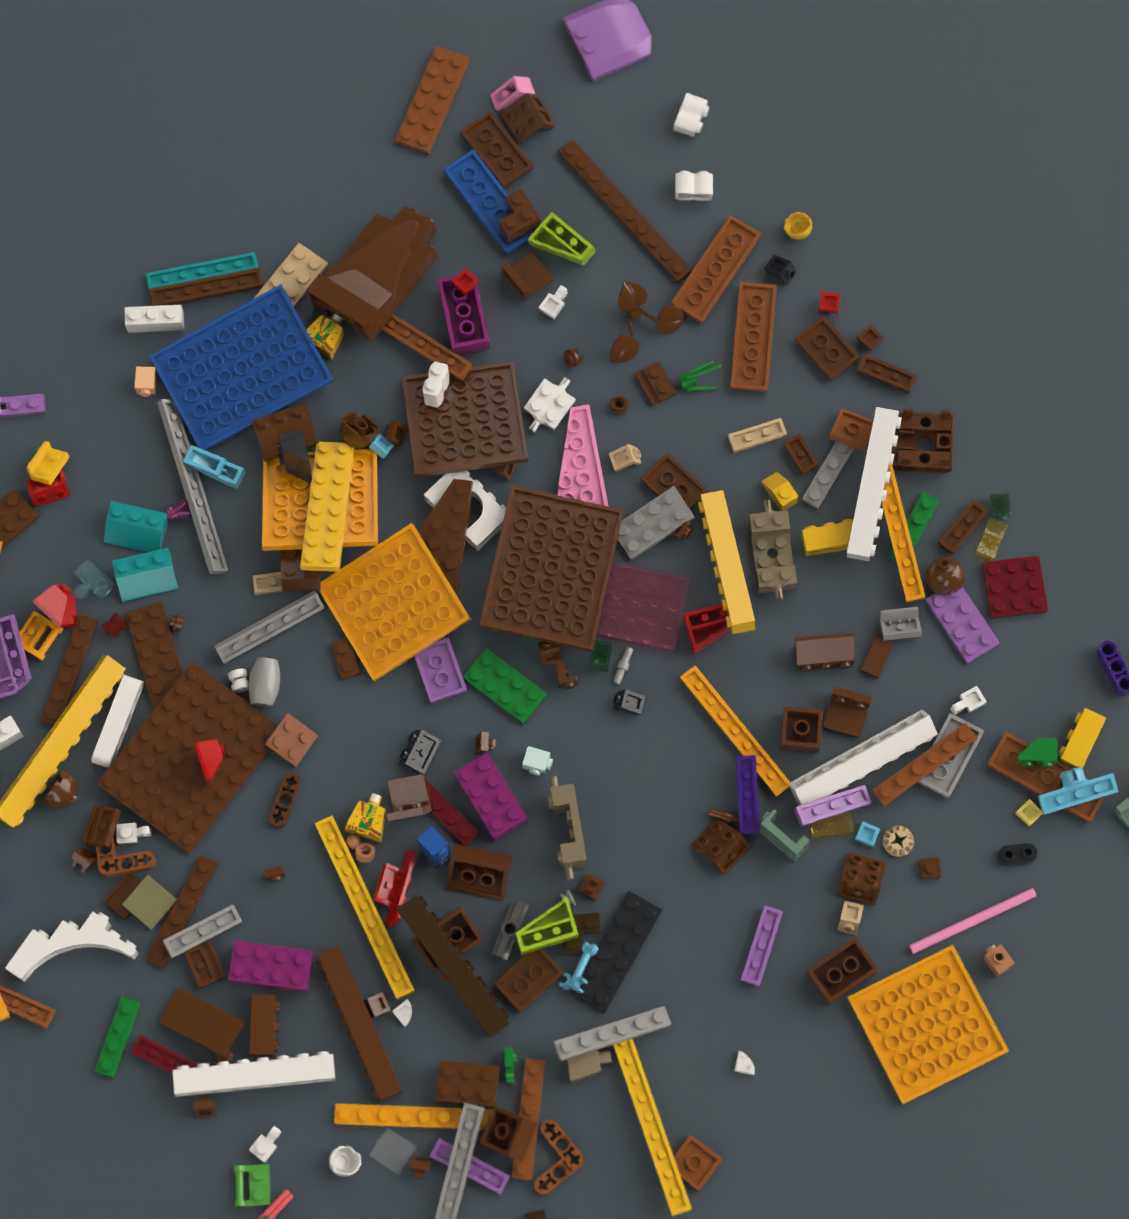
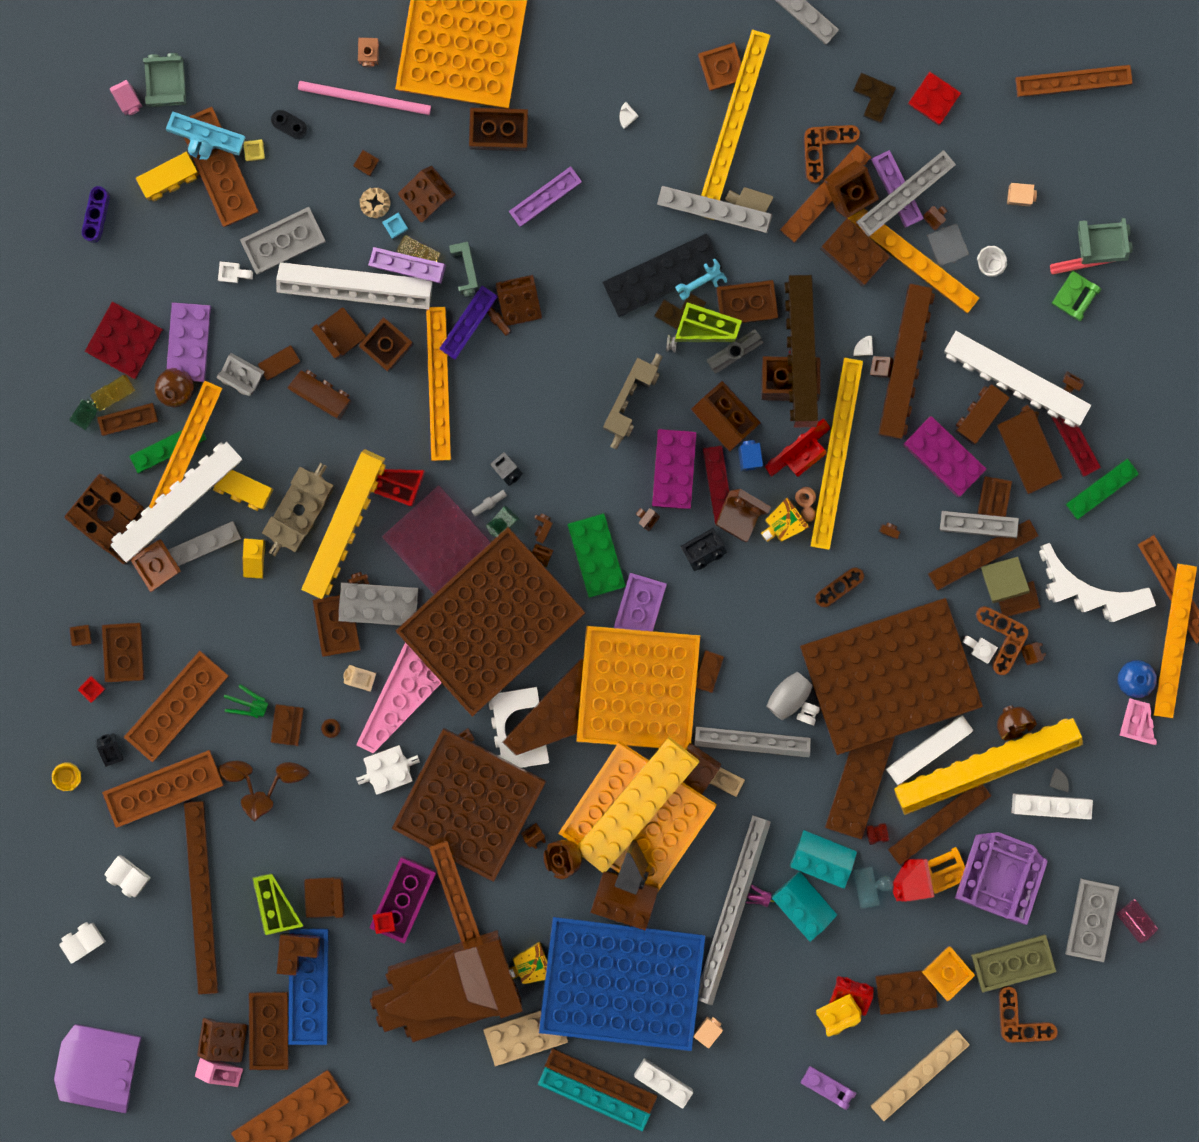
camera: 145 degrees left, 15 degrees up
(101, 826) = (1002, 668): reddish brown plate -> none
(176, 622) = (825, 800): reddish brown plate -> none
(210, 758) = (879, 659): red slope -> none
(214, 466) = (703, 913): medium azure slope -> none
(265, 1146) = (1045, 320): white plate -> none
(291, 740) = (800, 633): dark orange plate -> none
(381, 446) = (553, 832): medium azure tile -> none
(436, 384) = (475, 848): white brick -> none
(510, 1059) = (807, 248): green plate -> none
(537, 761) = (615, 472): light aqua brick -> none
(552, 303) = (321, 855): white plate -> none
(572, 358) = (341, 796): reddish brown plate -> none
(591, 887) = (644, 341): reddish brown tile -> none
(757, 435) = (236, 619): tan tile -> none
(800, 454) = (213, 576): reddish brown plate -> none
(850, 918) = (458, 168): tan bracket -> none
(886, 373) = (90, 594): reddish brown plate -> none
(924, 764) = (309, 245): dark orange plate -> none
(1040, 752) = (210, 188): green slope -> none

